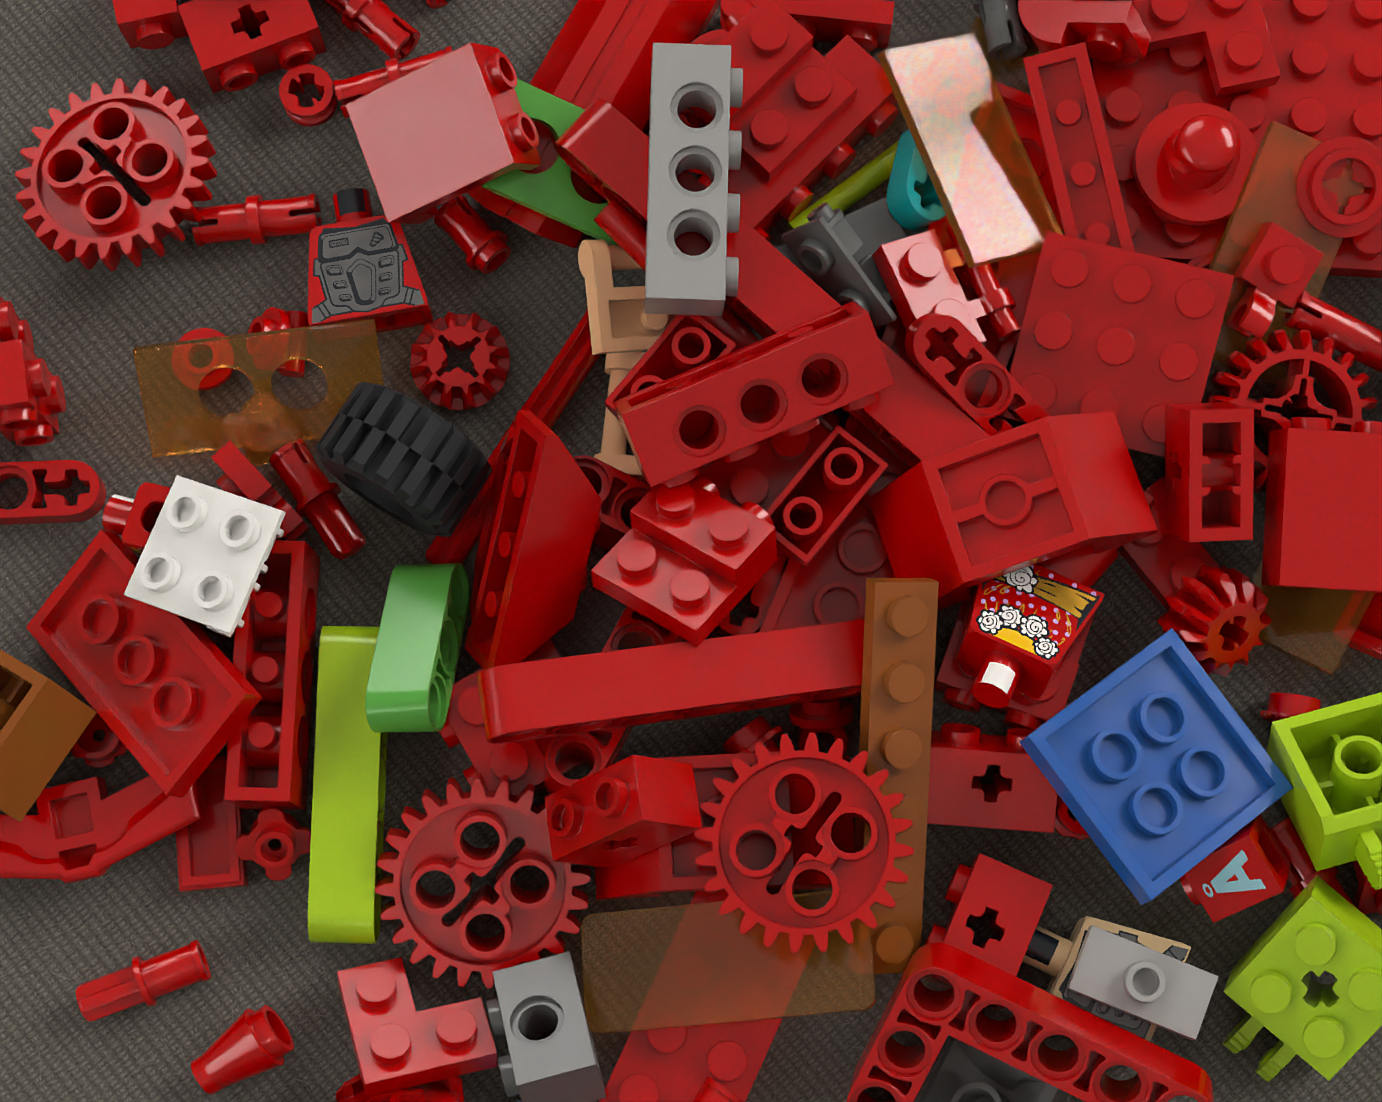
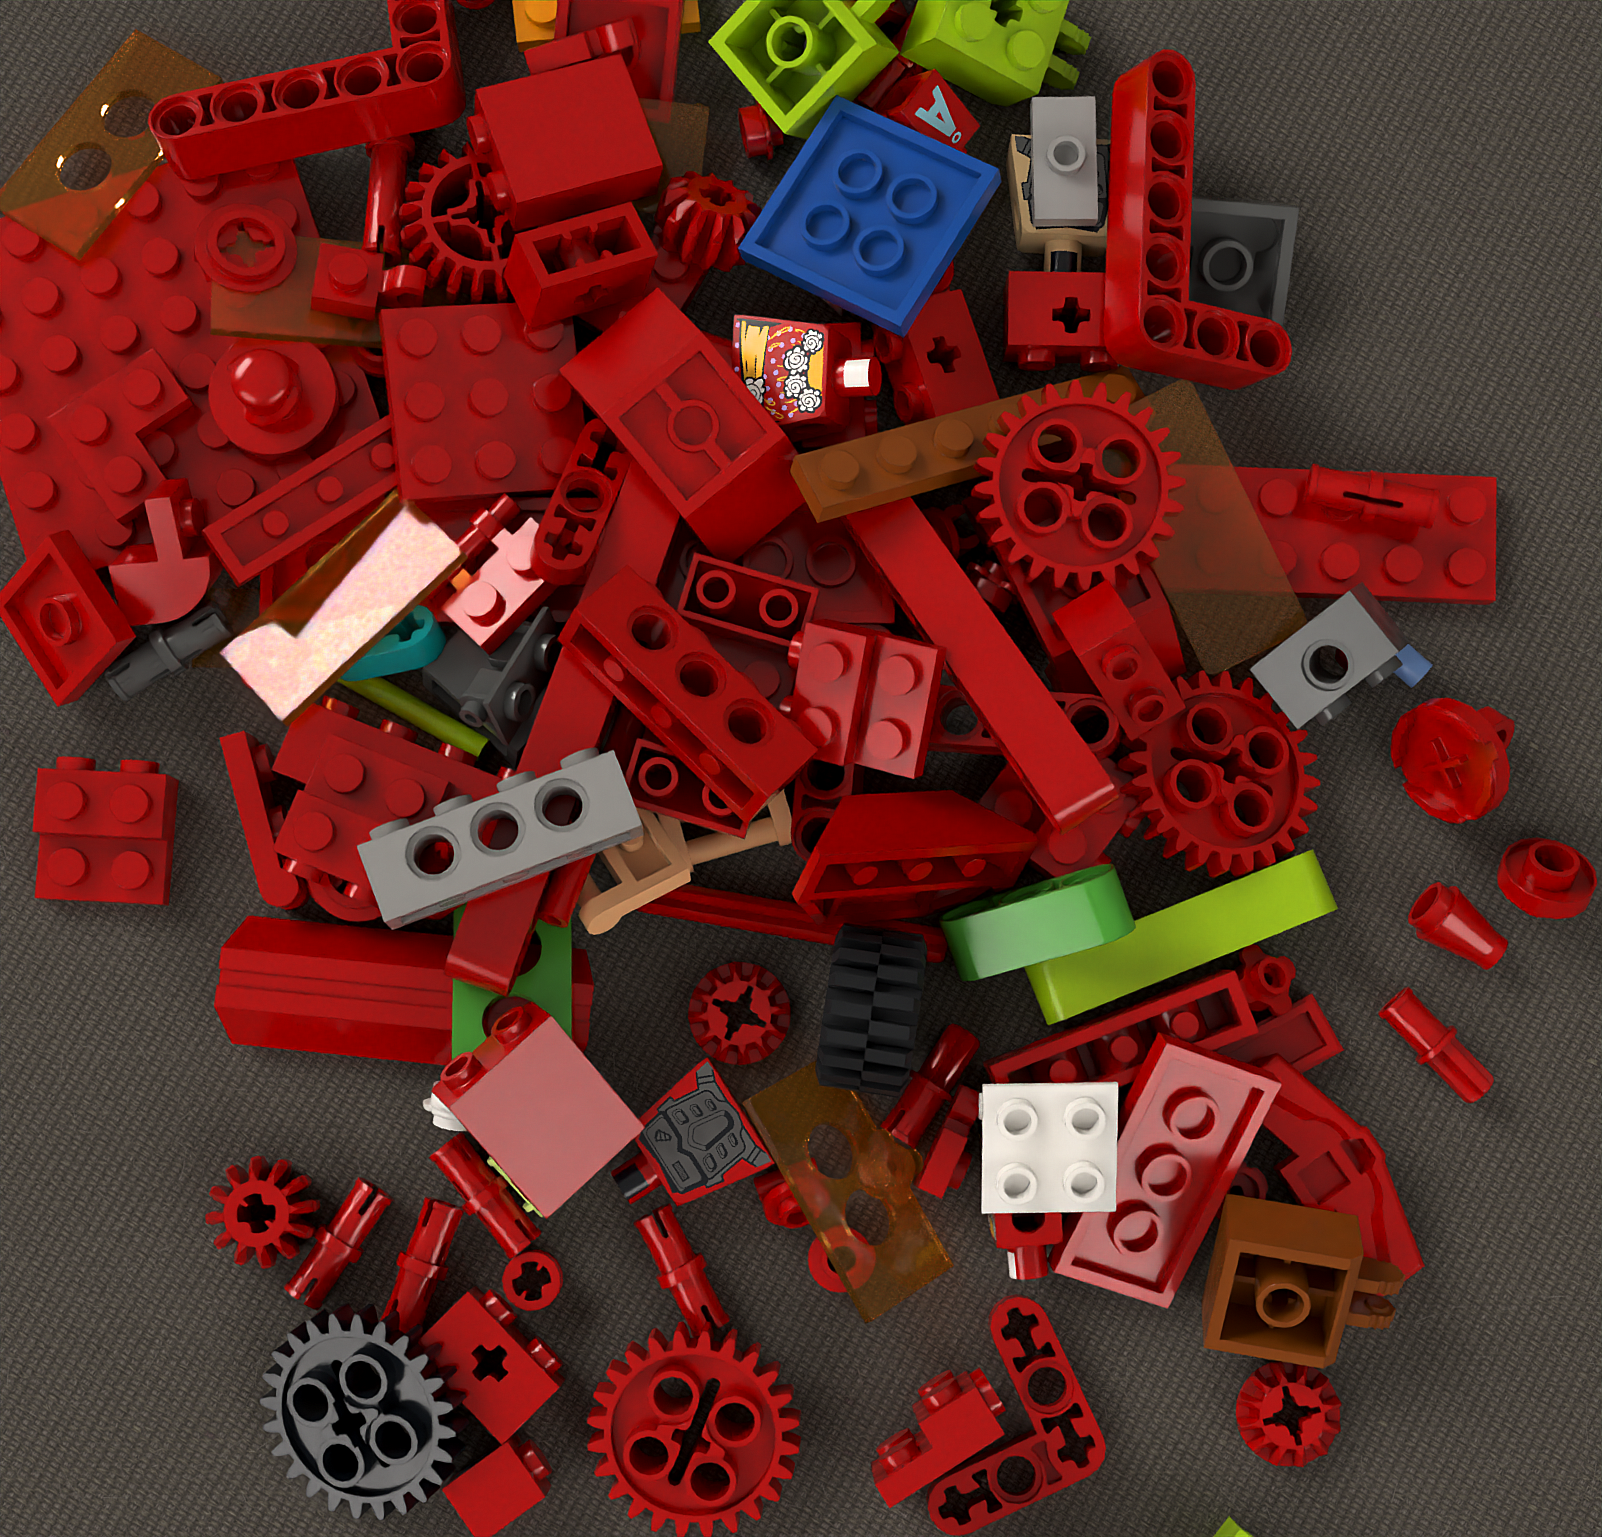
camera: 115 degrees left, 5 degrees up
(408, 1047) = (1396, 784): plate -> none
(473, 235) = (616, 1045): red pin -> none

